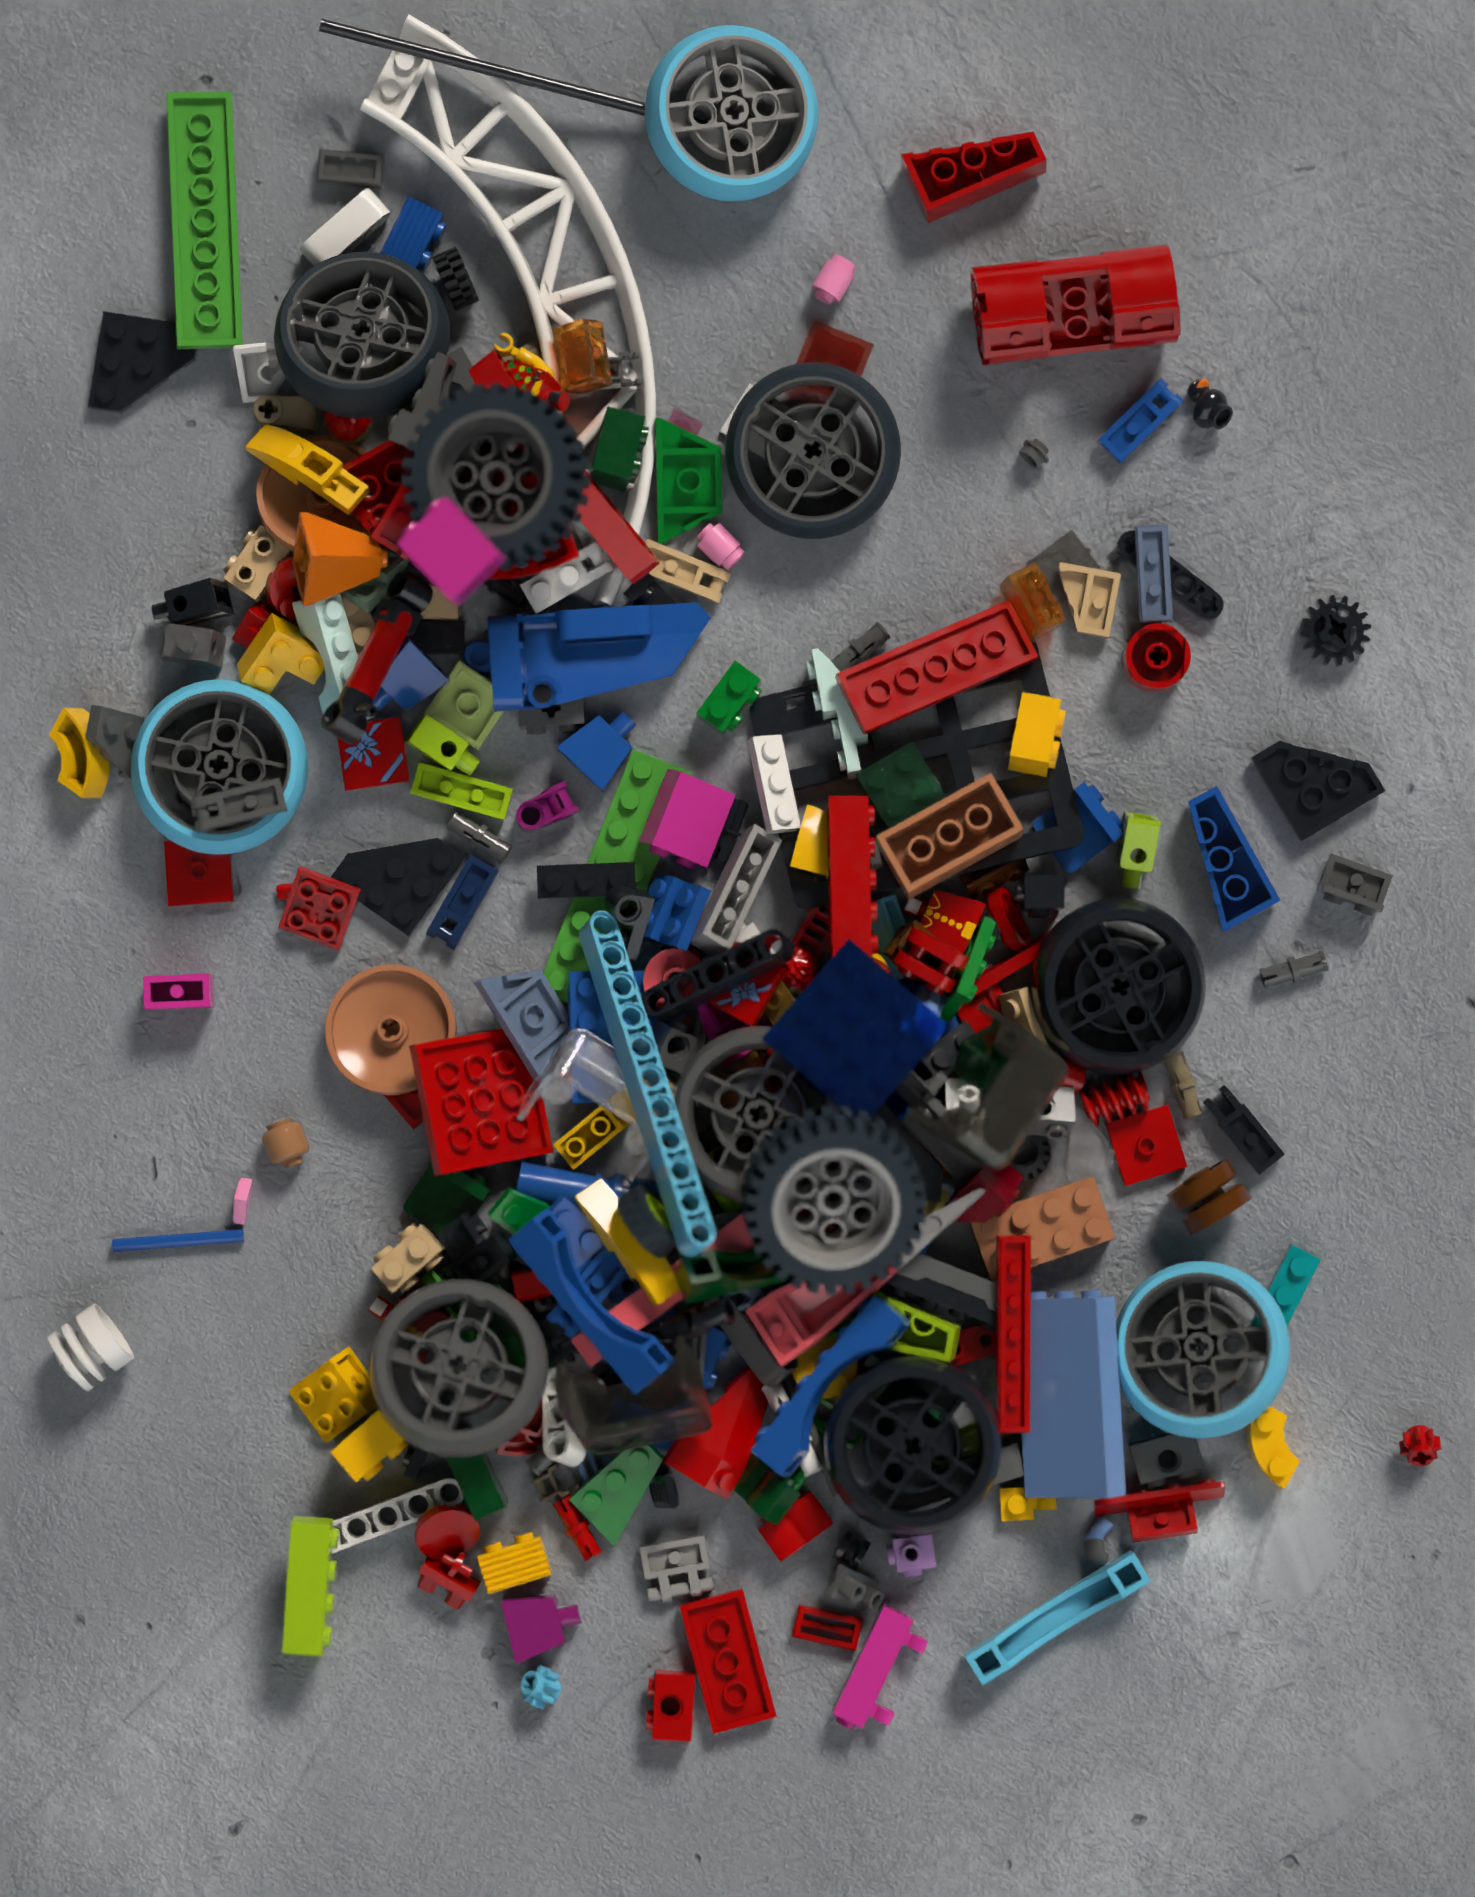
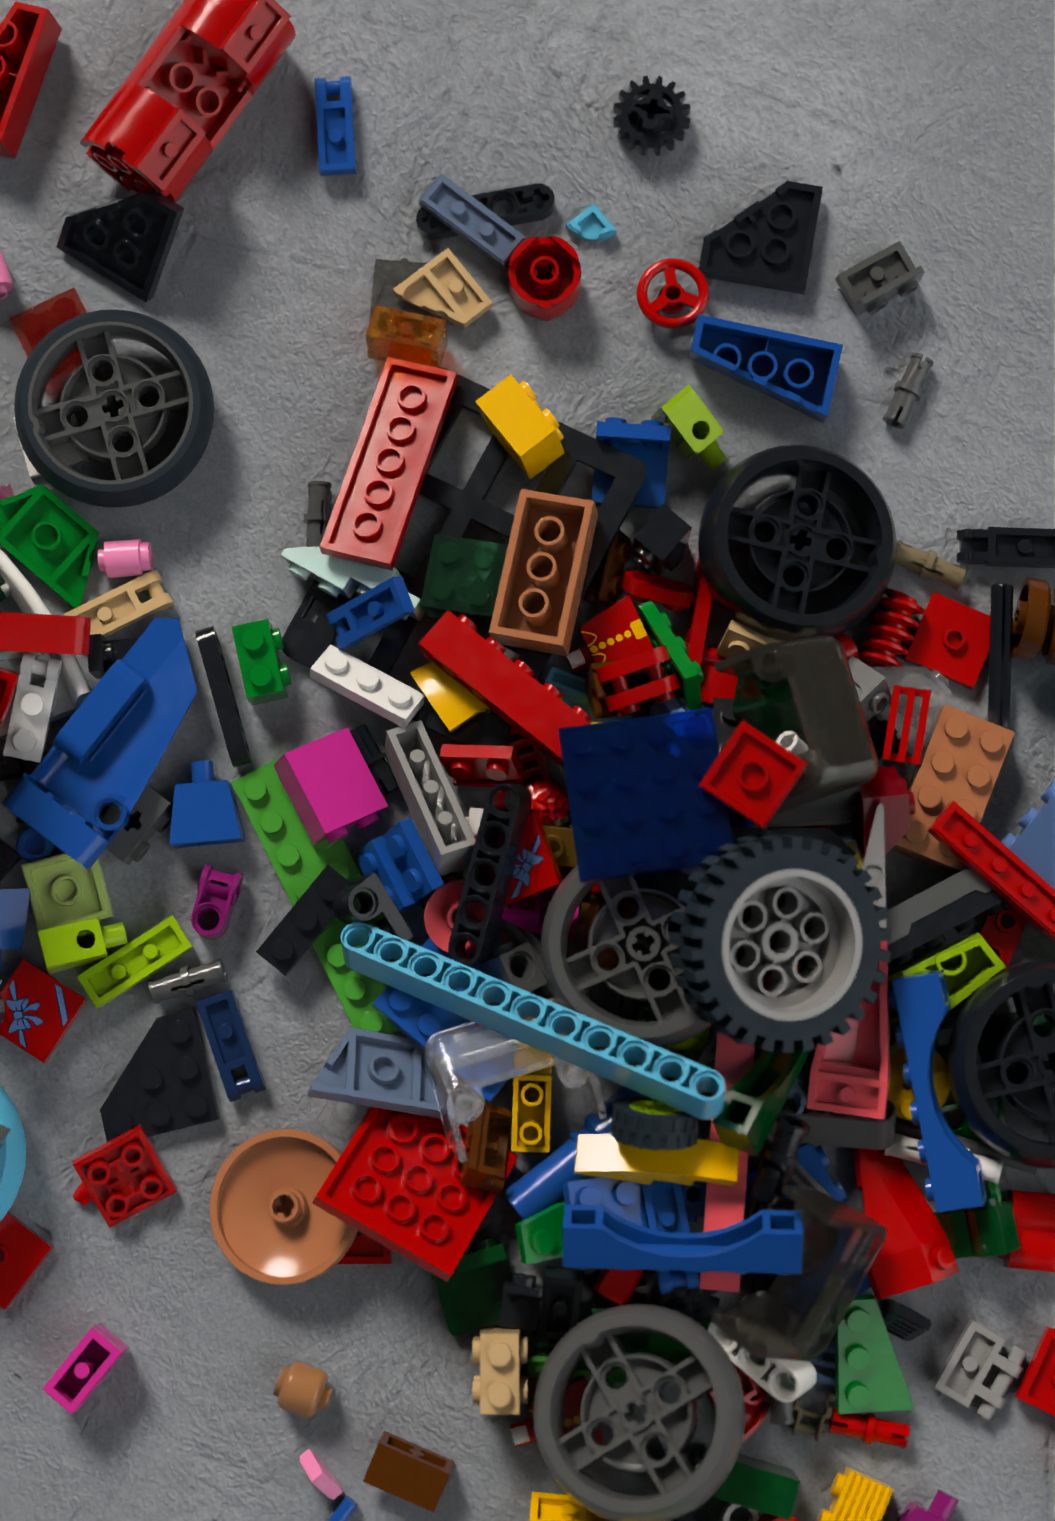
camera: 40 degrees left, 5 degrees down
(293, 1255) = (408, 1471): none -> reddish brown hinge
(540, 1127) = (486, 1149): none -> reddish brown hinge
(685, 693) = (223, 696): none -> black beam
(787, 907) = (482, 765): none -> red plate
(823, 745) = (370, 612): none -> blue plate
(925, 1091) = (753, 775): none -> red tile
(933, 352) = (124, 240): none -> black plate
(1033, 1177) = (911, 693): none -> red tile
(1034, 453) = (283, 233): dark grey plate -> none
(1161, 1186) = (1000, 654): none -> black axle
(1209, 751) = (670, 306): none -> red piece
(1211, 405) = (373, 56): black animal -> none
(1223, 655) = (591, 225): none -> medium azure tile

